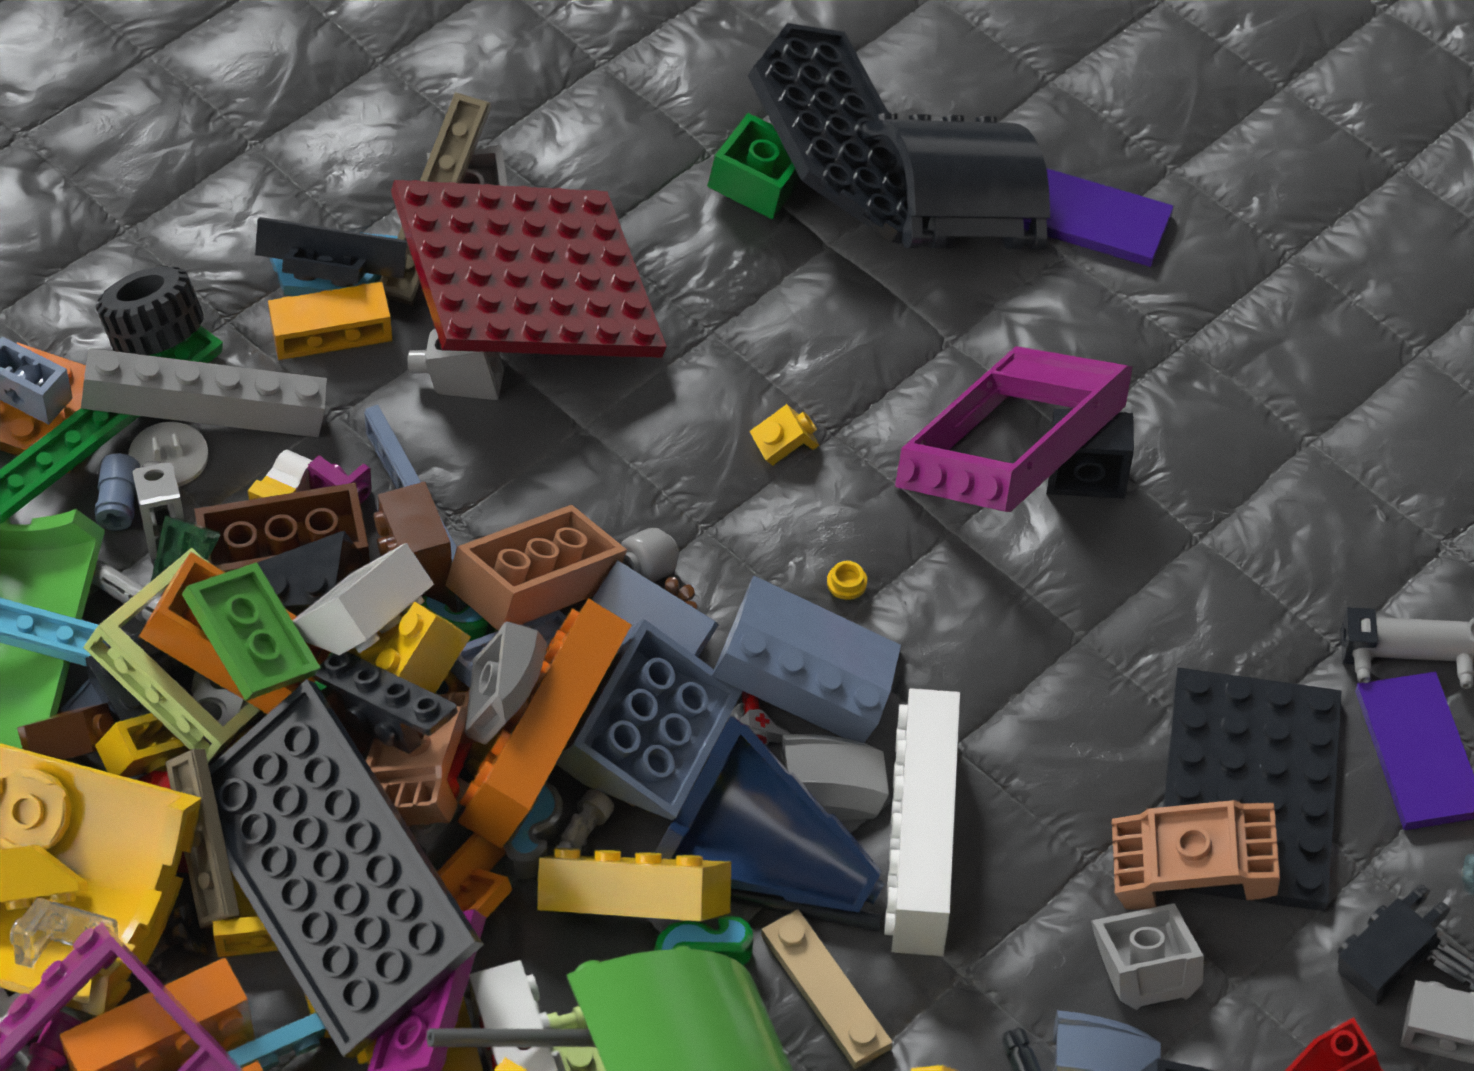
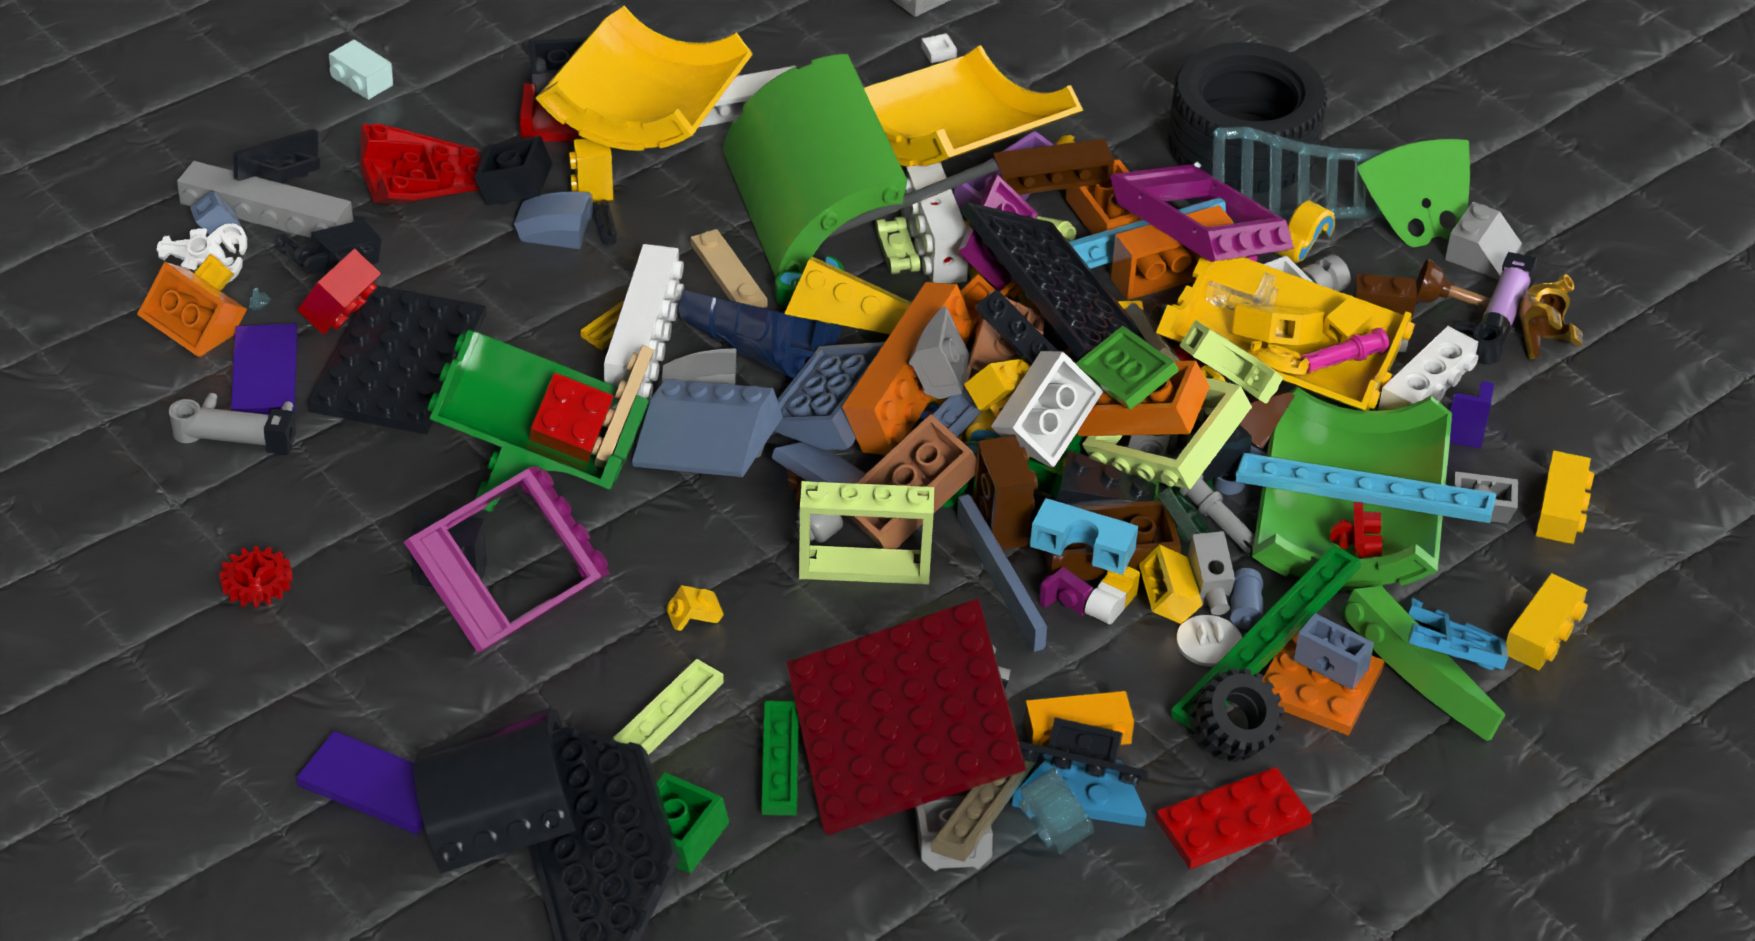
camera: 175 degrees left, 10 degrees down
(87, 745) = (1231, 361): none -> yellowish green arch
(168, 235) = (1233, 817): none -> red plate
(203, 393) = (1182, 639): light grey brick -> none
(208, 477) = (1170, 584): none -> yellow brick
(344, 497) = (1064, 524): none -> medium azure arch
(358, 204) = (1055, 810): none -> clear light blue brick
(590, 421) = (865, 563): none -> yellowish green window
(662, 261) = (780, 758): none -> green plate
(793, 307) = (672, 706): none -> yellowish green plate
(847, 580) = (664, 502): yellow plate -> none
(919, 640) = (626, 393): none -> tan plate
(984, 618) = (571, 417): none -> red brick
(992, 848) = (601, 326): none -> yellow tile
(1029, 617) = (496, 397): none -> green cylinder
(1149, 955) = (508, 263): light grey slope -> none
(1195, 849) = (458, 292): nougat plate -> none
(1307, 430) = (256, 576): none -> red gear
(1360, 836) = (340, 293): none -> red brick

